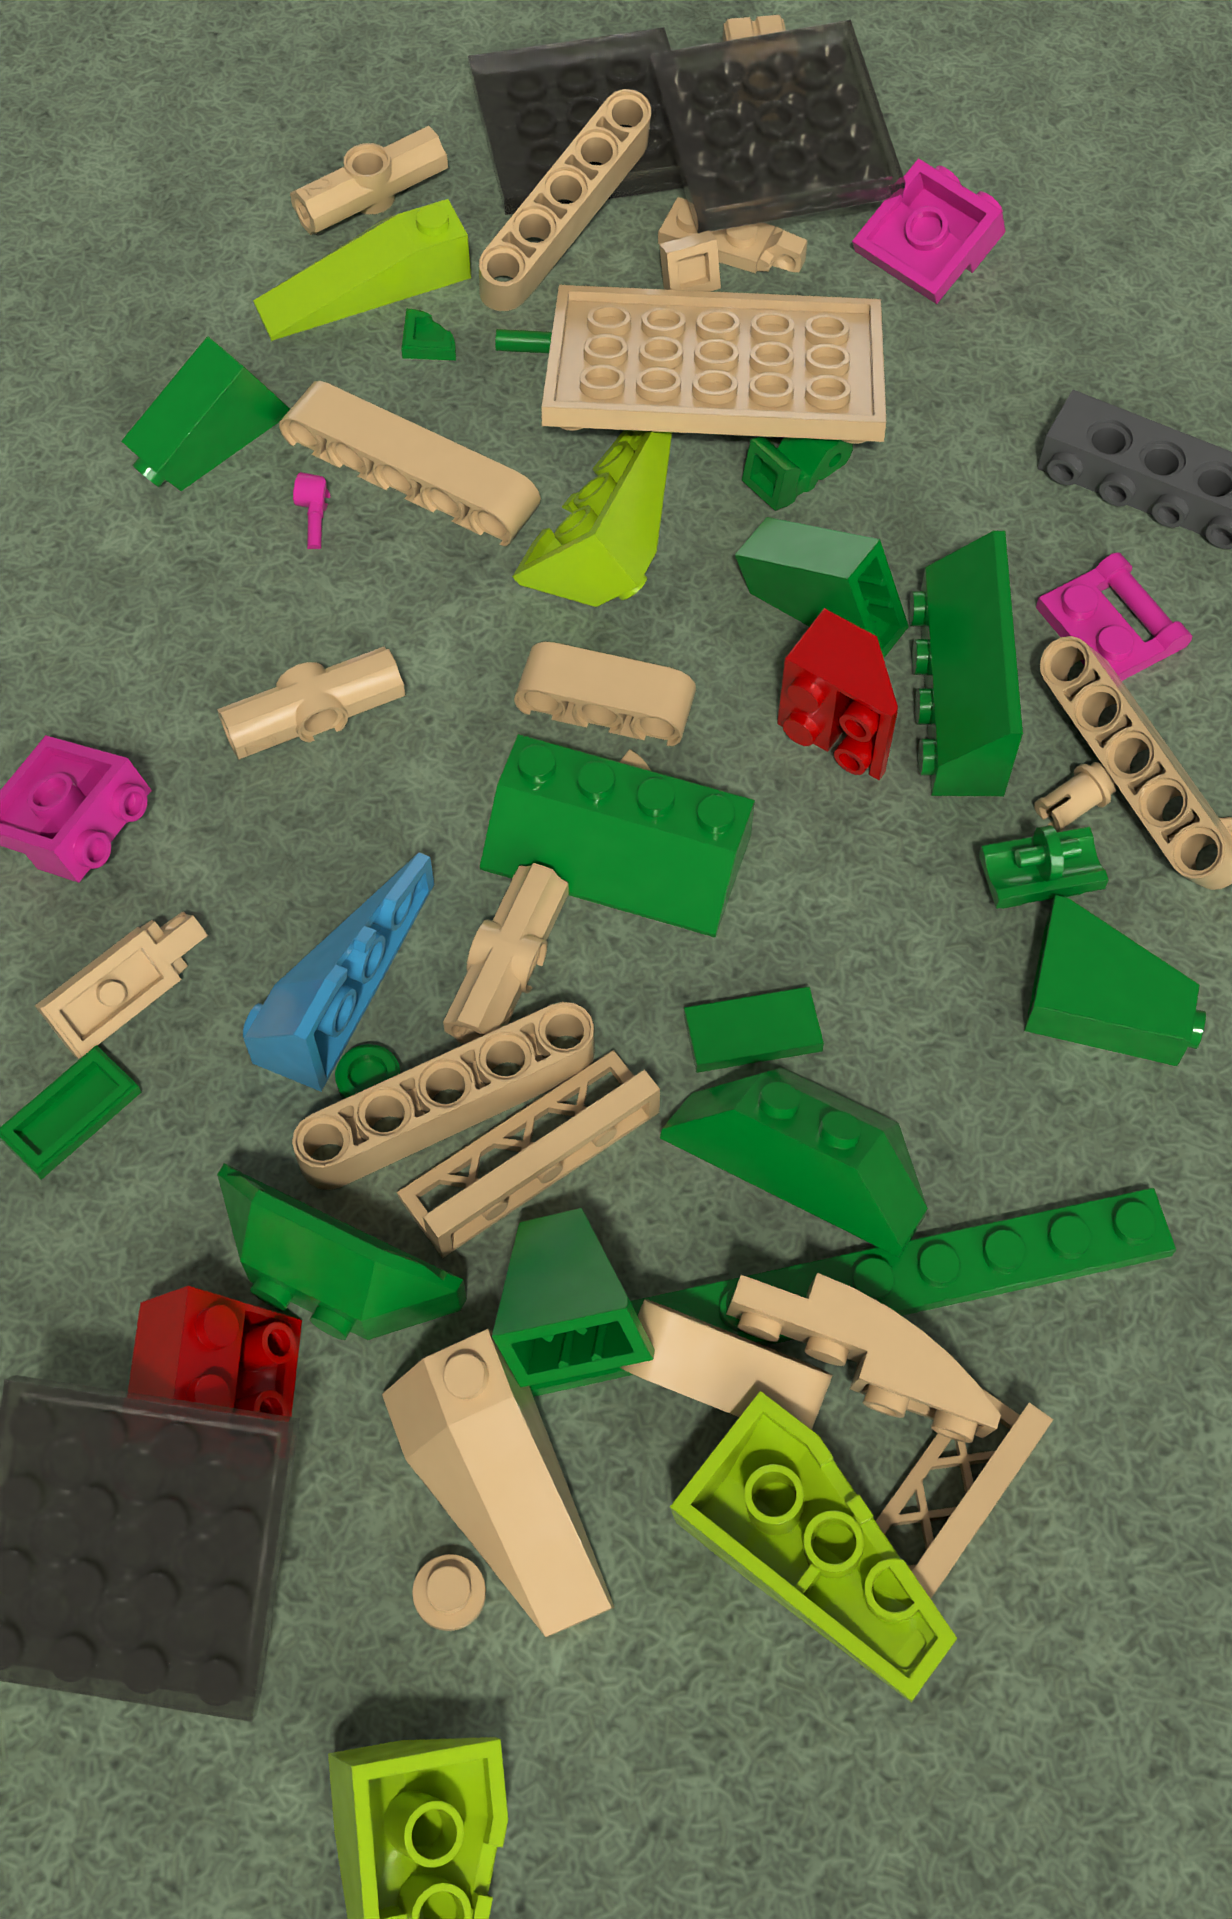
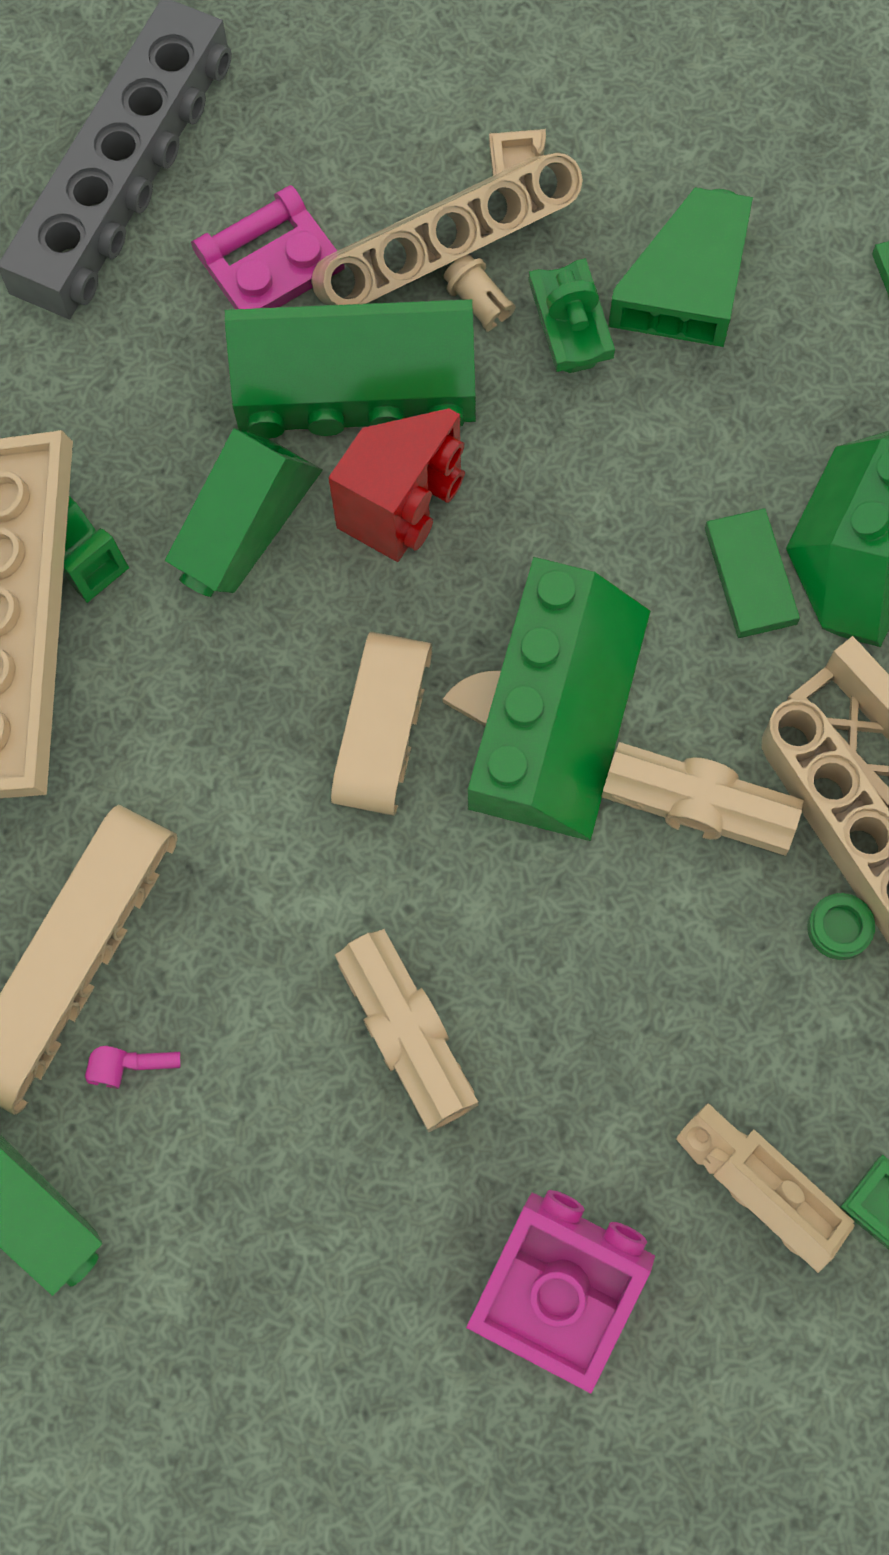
camera: 90 degrees left, 10 degrees up
(325, 995) = (790, 976): dark azure wedge -> none
(612, 526) = (167, 731): lime wedge -> none

